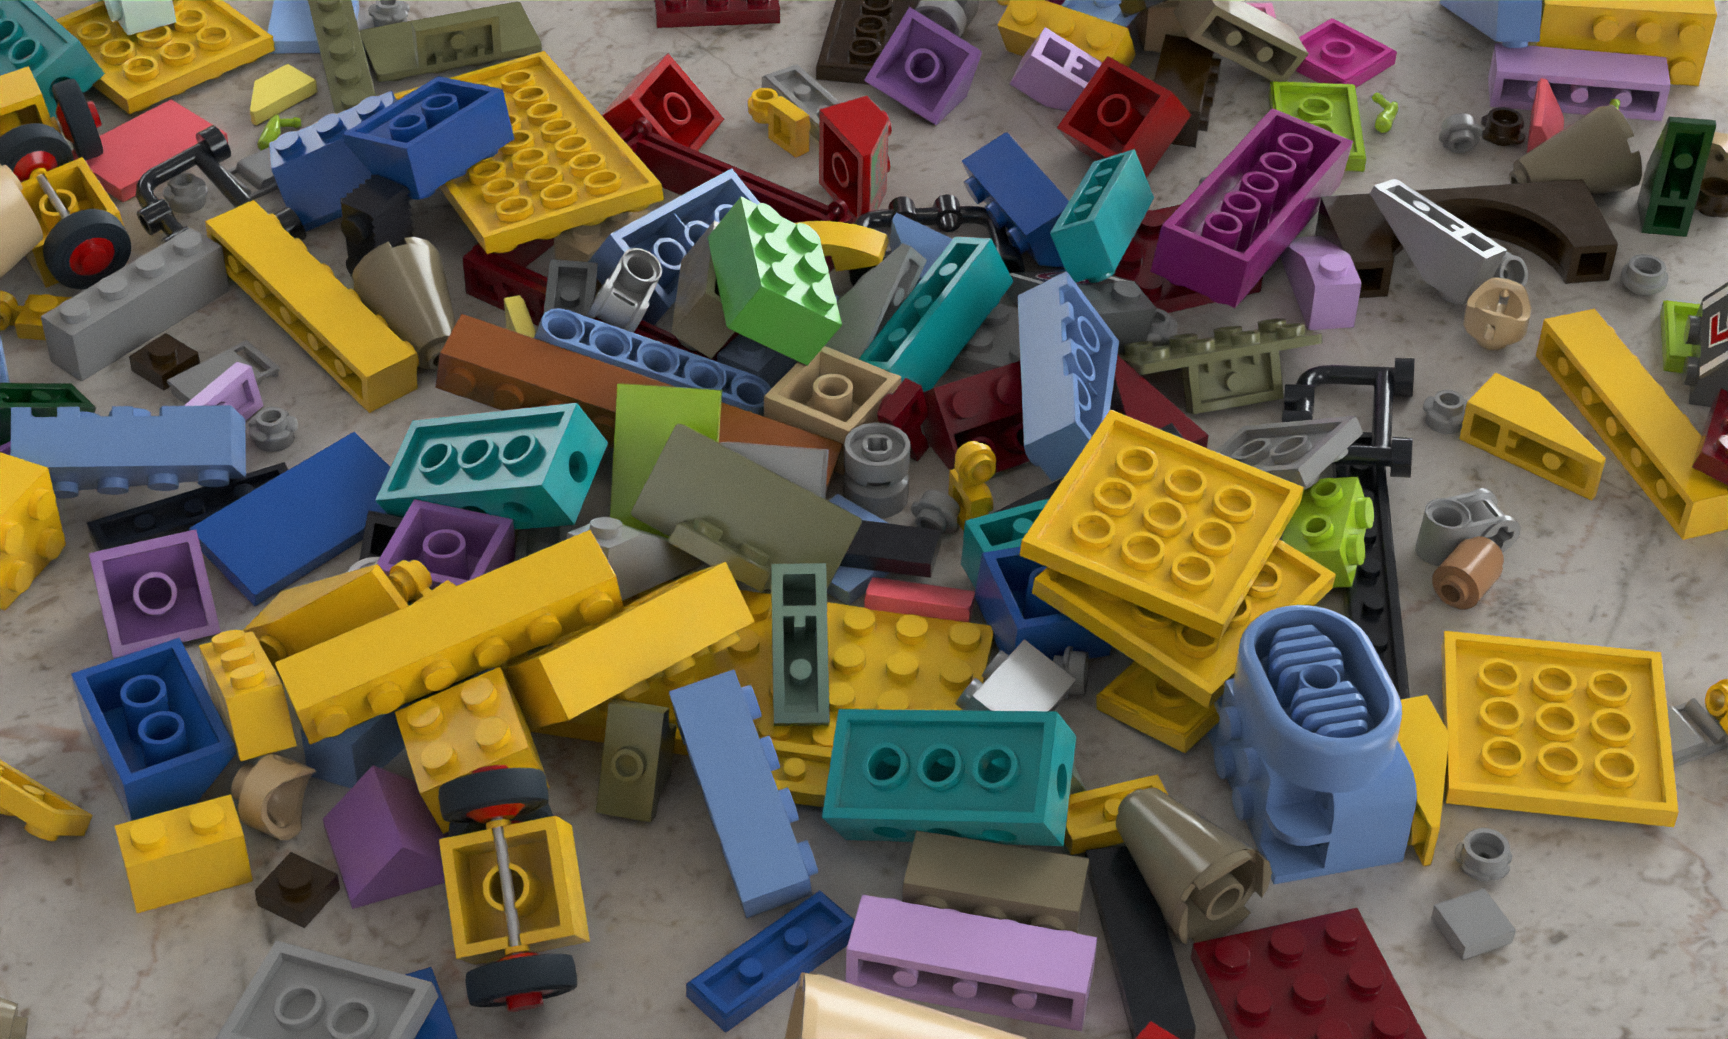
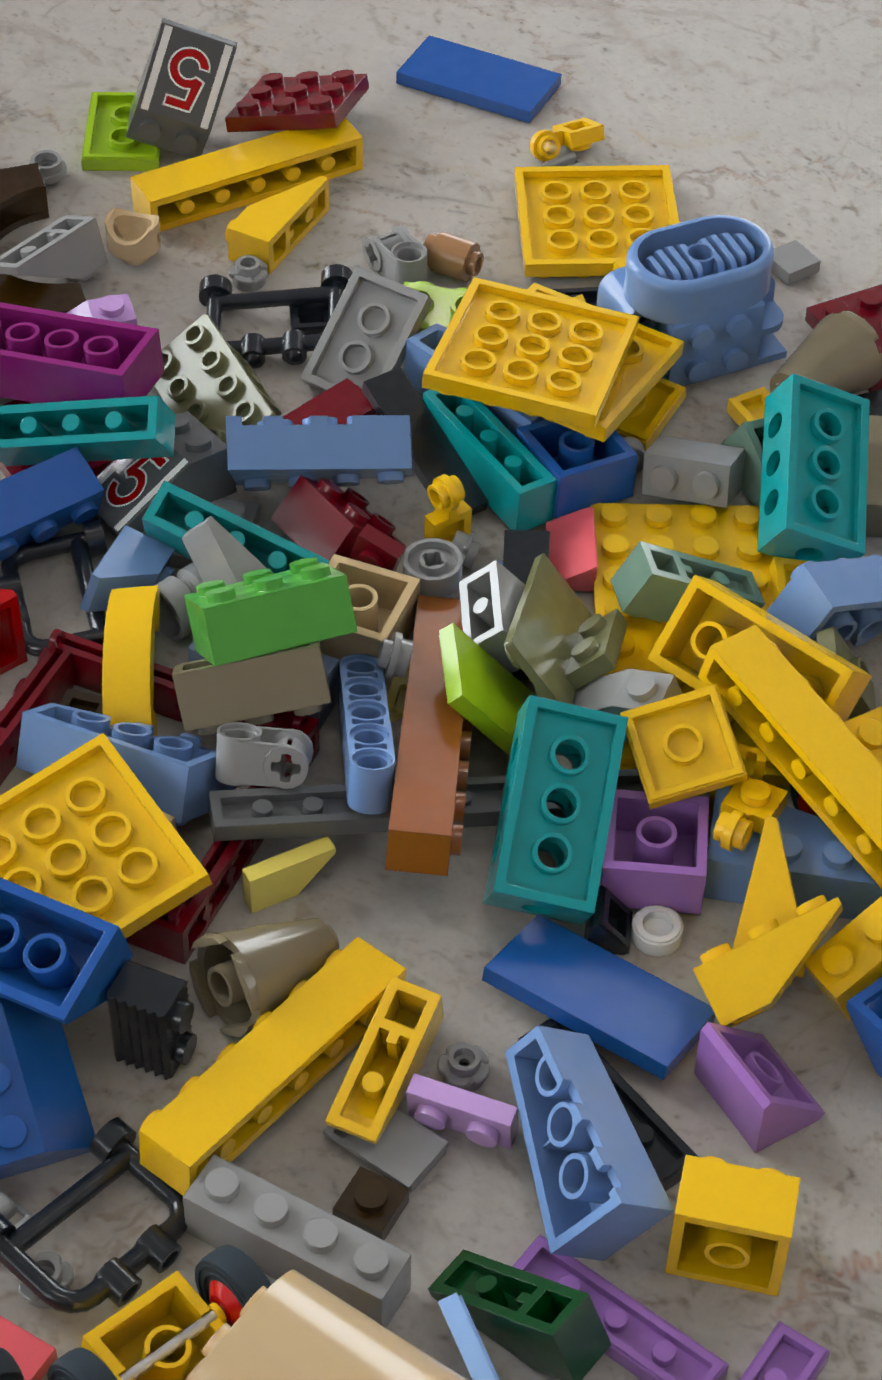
camera: 100 degrees left, 5 degrees up
(249, 583) = (757, 973): none -> yellow slope
(291, 368) = (387, 1060): none -> yellow slope
(514, 537) = (684, 746): none -> yellow tile
(747, 397) = (395, 656): none -> light grey plate

